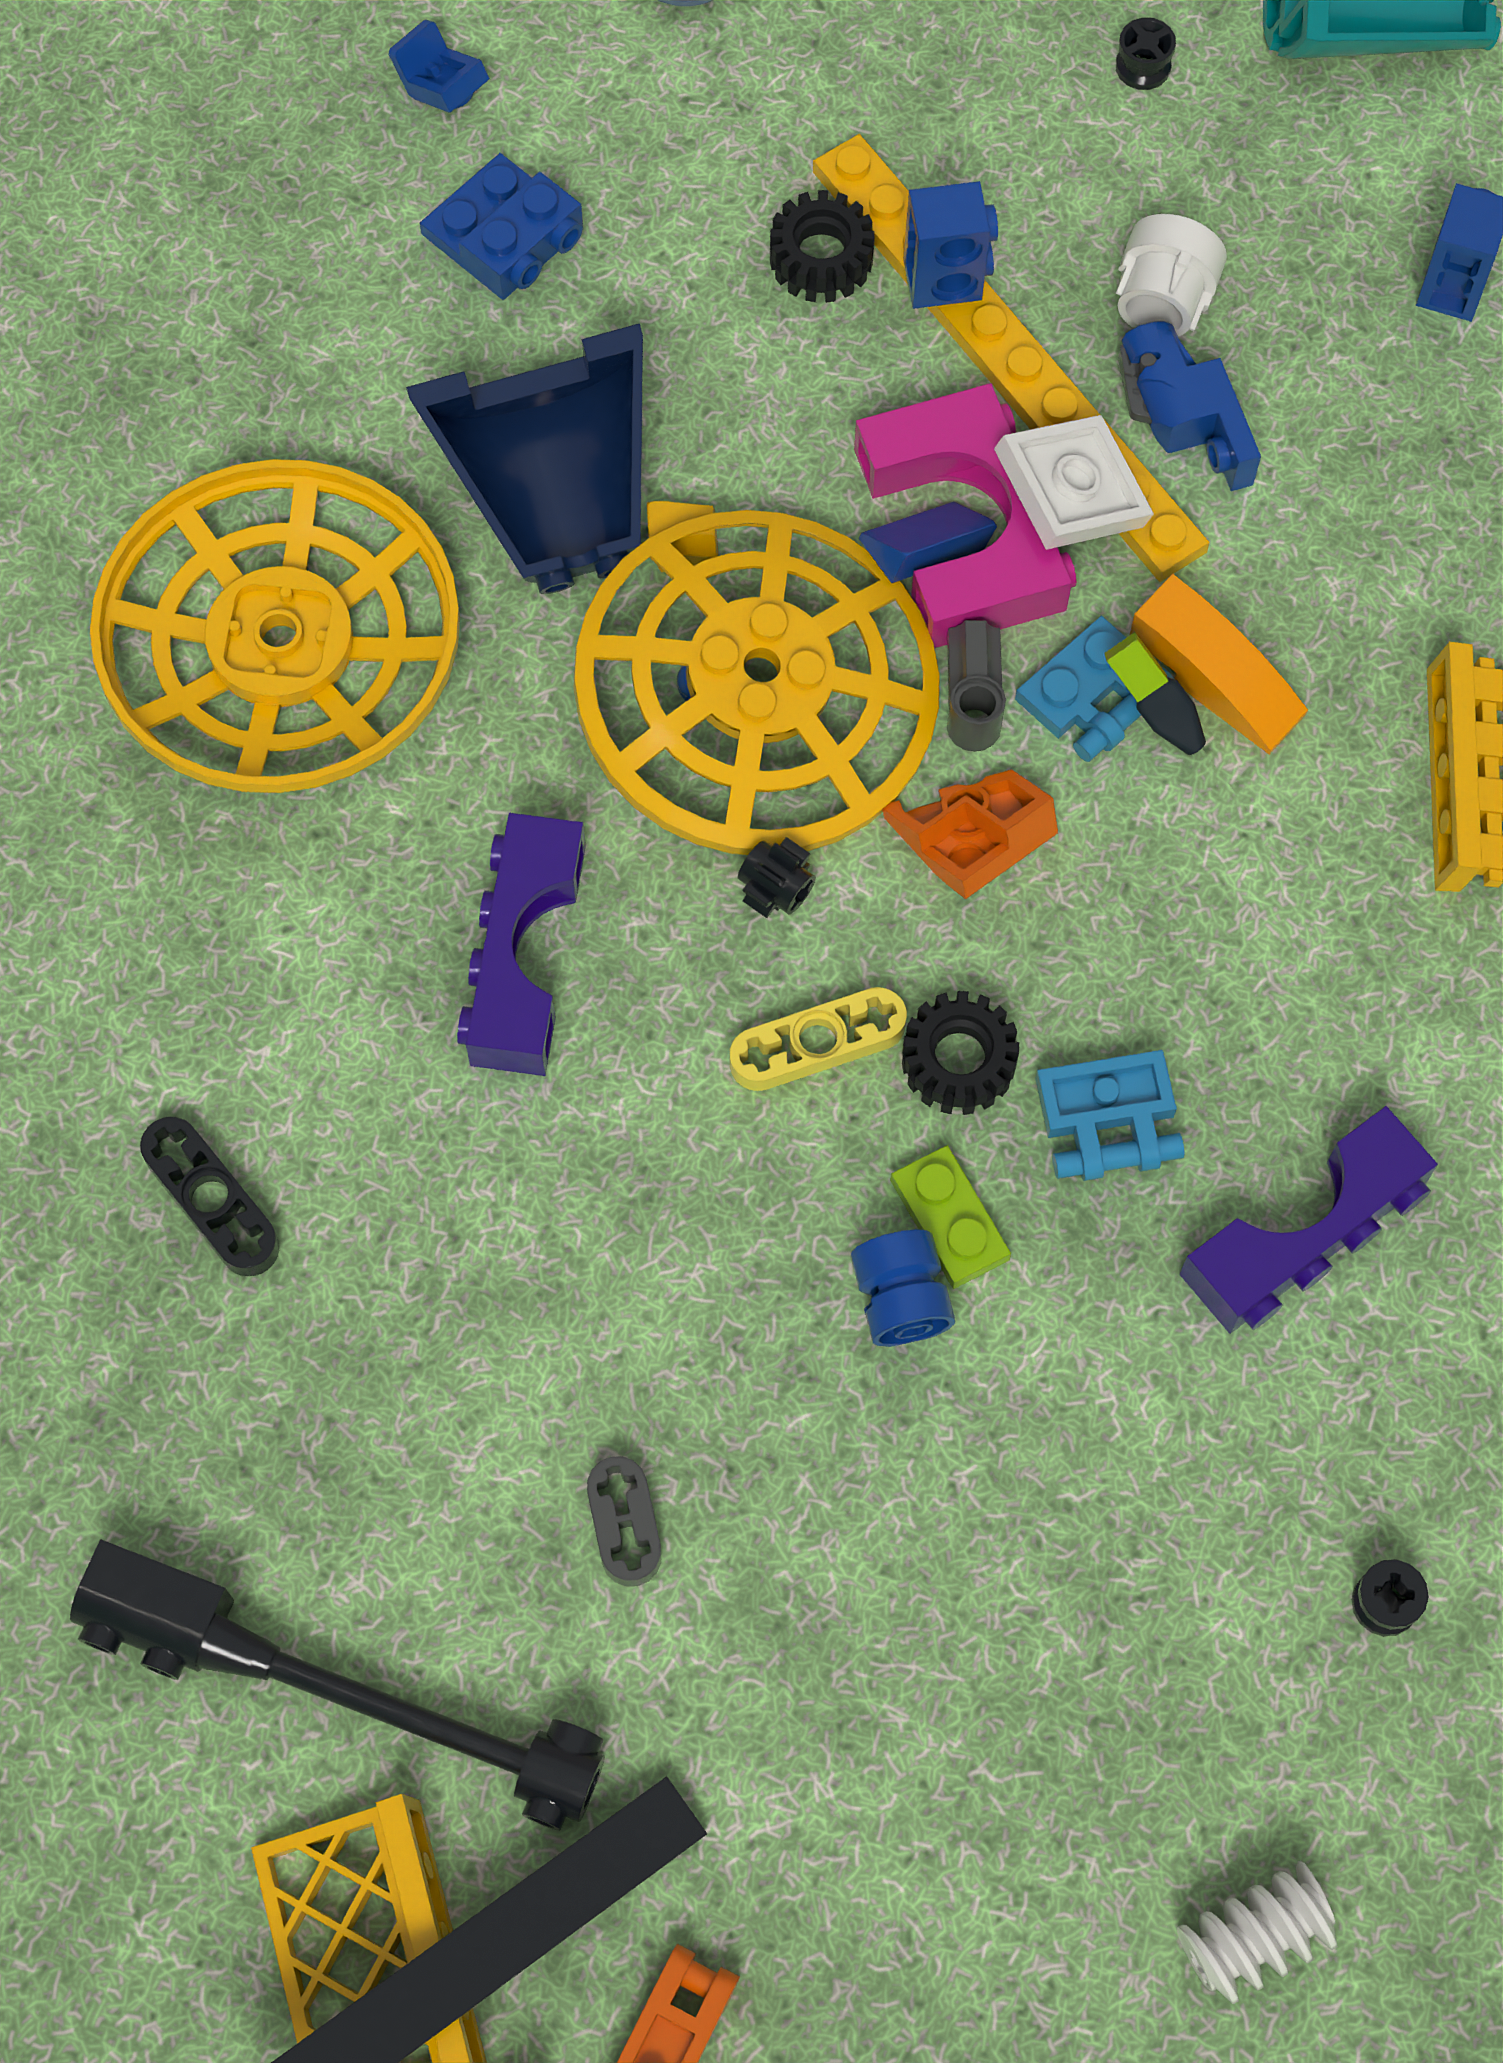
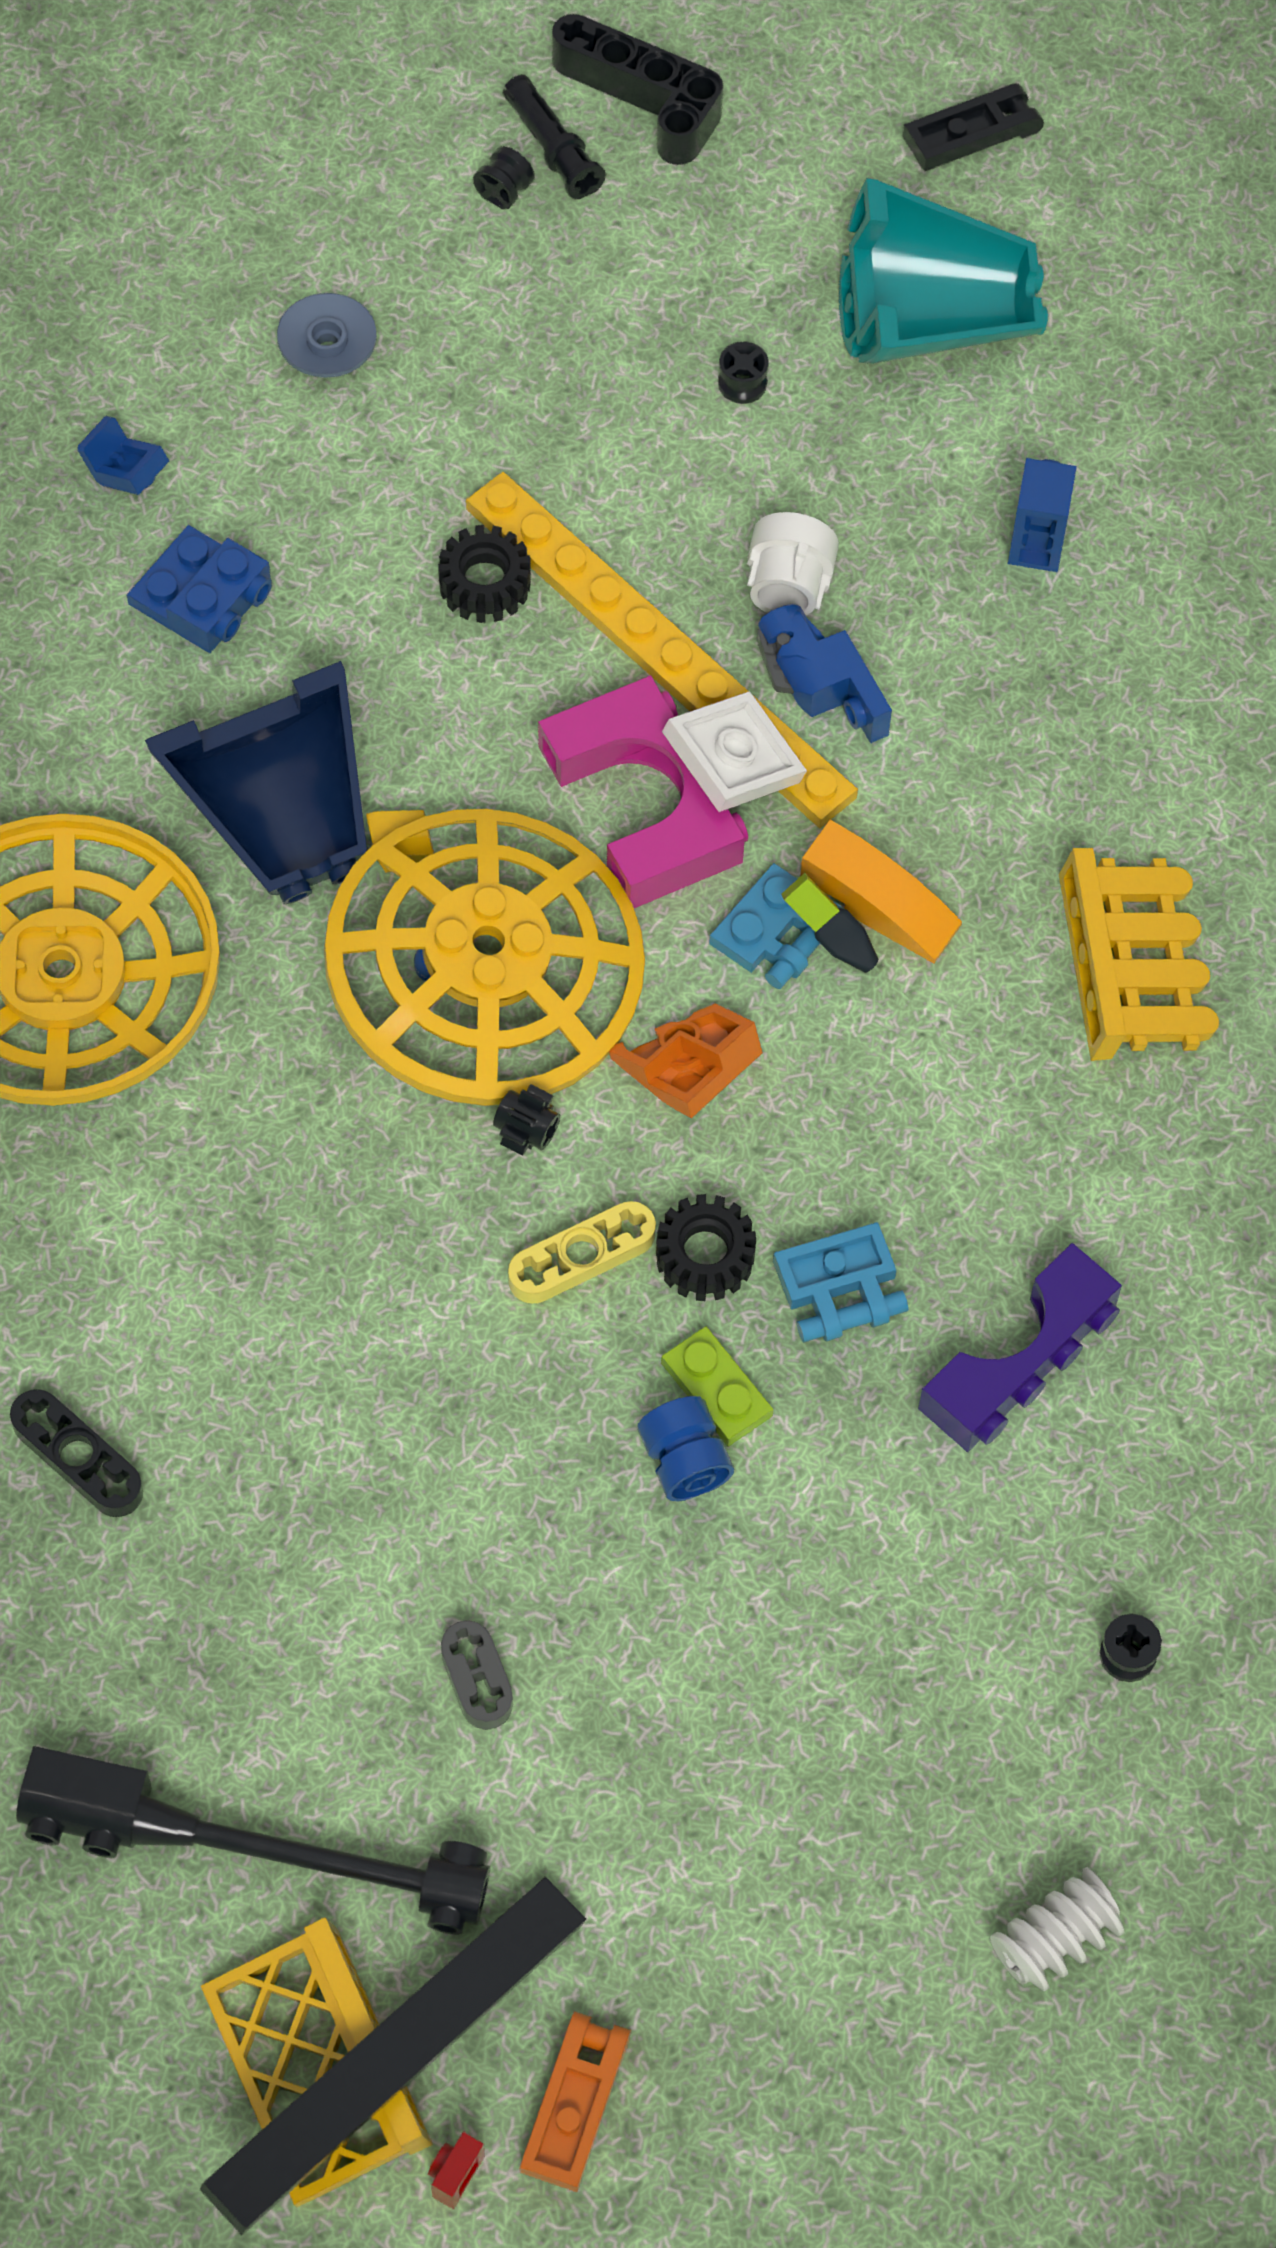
camera: 10 degrees left, 5 degrees down
(510, 1016) = (315, 1264): dark purple arch -> none
(927, 539) = (614, 816): blue slope -> none
(948, 244) = (597, 561): blue brick -> none
(974, 684) = (673, 935): dark grey piece -> none

